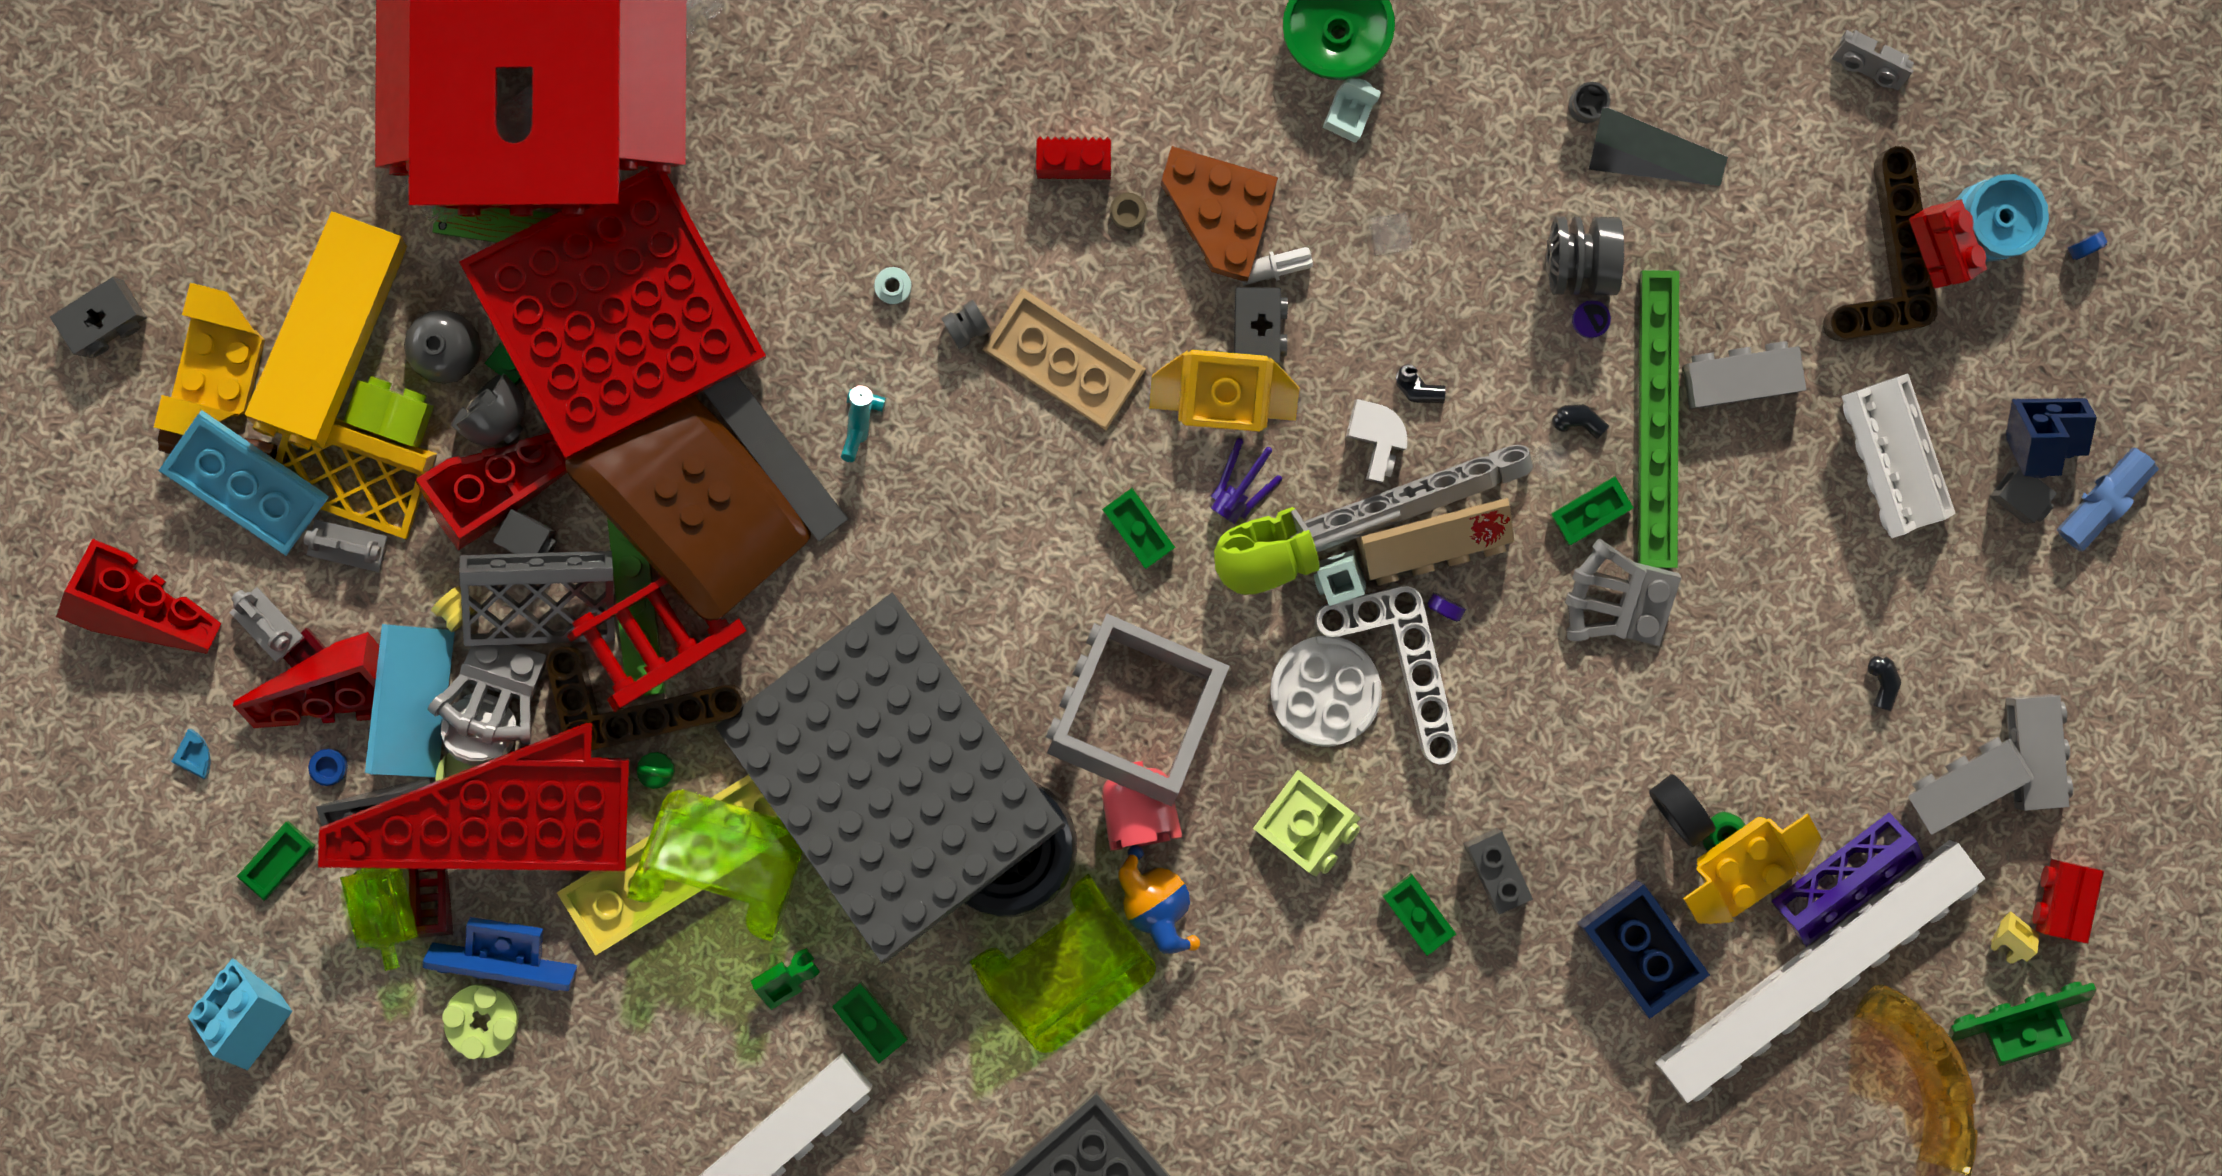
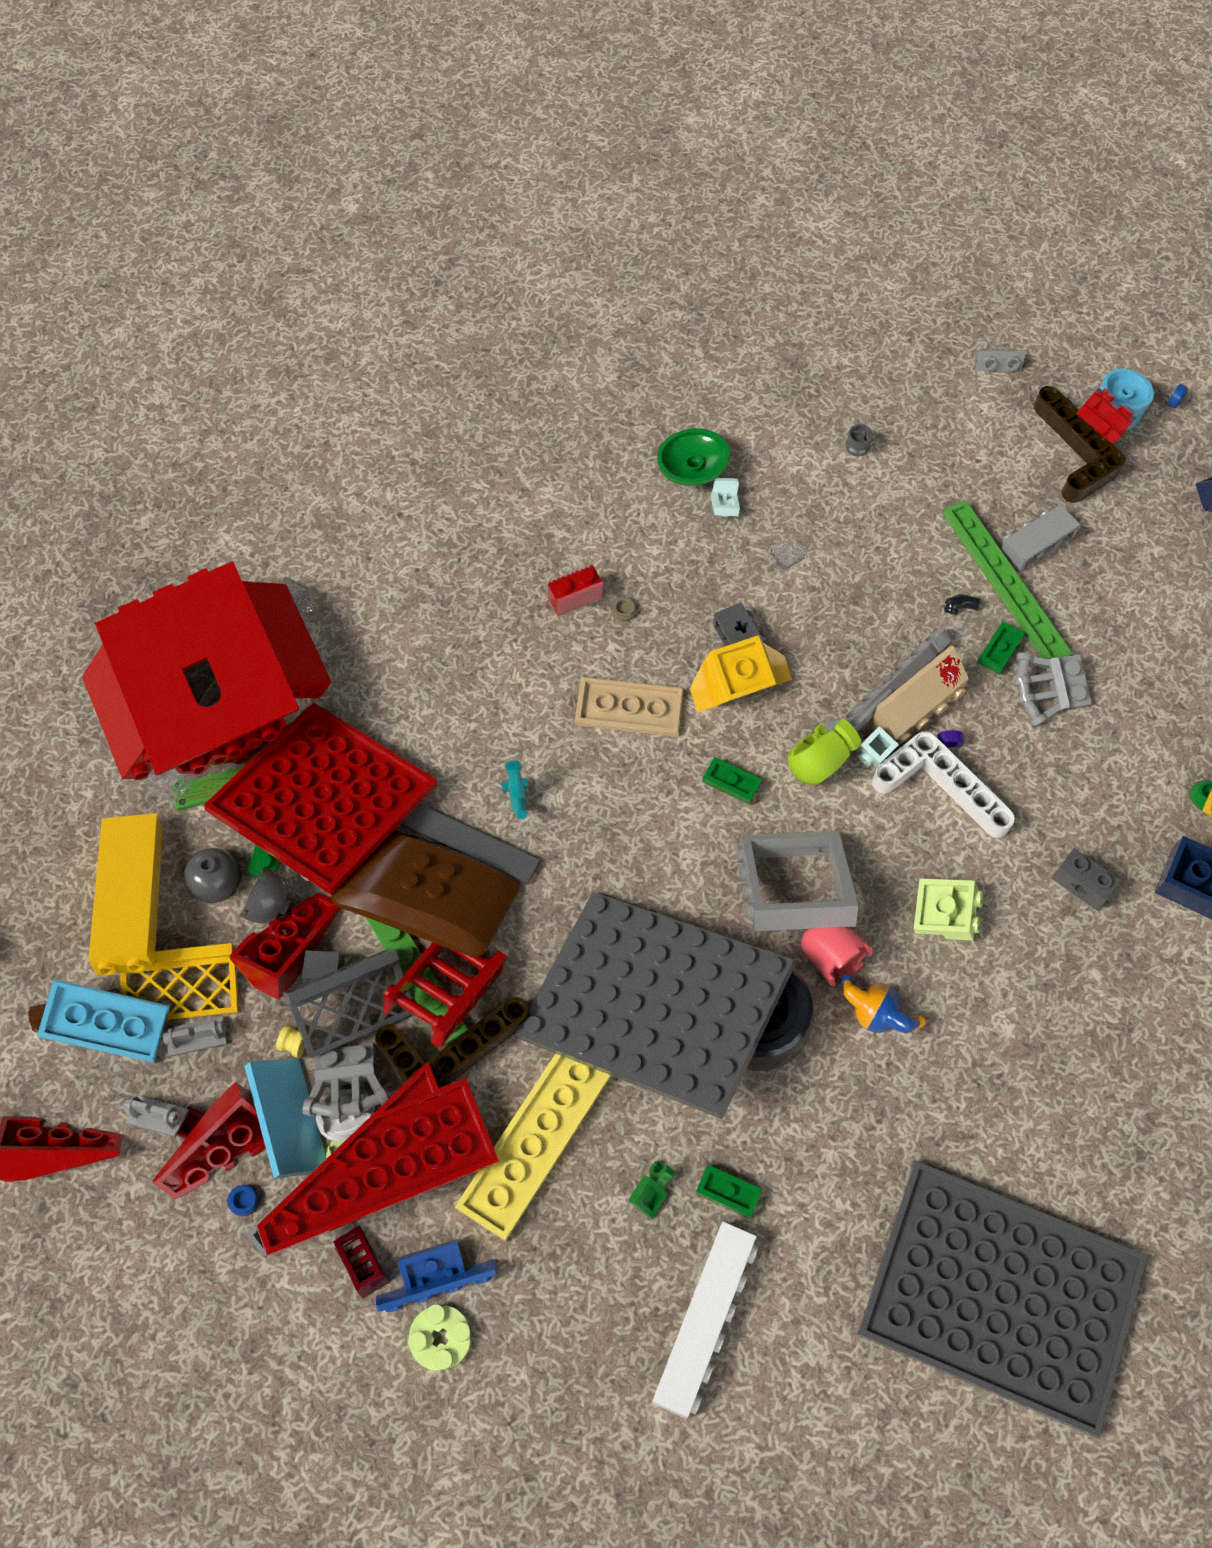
camera: 25 degrees left, 25 degrees down
(193, 754) = (135, 1241): dark azure tile -> none
(215, 363) = (52, 948): yellow piece -> none
(238, 1015) = (246, 1426): medium azure slope -> none
(276, 860) = (229, 1291): green tile -> none
(379, 911) = (325, 1282): clear neon green plate -> none
(388, 412) = (192, 929): lime brick -> none
(655, 770) = (486, 1087): green tile -> none
(721, 852) = (564, 1108): clear neon green windscreen -> none
(897, 296) = (498, 717): light aqua plate -> none
(966, 324) = (559, 708): dark grey wheel -> none
(1068, 972) = (849, 1083): clear neon green windscreen -> none
(1220, 208) = (678, 580): dark orange plate -> none
(1232, 502) = (781, 739): dark purple plant -> none
(1280, 264) = (729, 597): white axle -> none
(1325, 691) = (907, 825): white tile -> none
(1384, 429) = (849, 656): white brick -> none
(1415, 389) = (855, 630): black arm -> none
(1419, 914) = (1053, 933): green plate -> none
(1579, 255) = (909, 509): dark grey wheel -> none
(1591, 319) = (932, 549): dark purple tile -> none
(1643, 150) = (910, 449): sticker -> none
(1682, 810) = (1179, 797): black tyre -> none
(1898, 455) = (1154, 539): white brick -> none

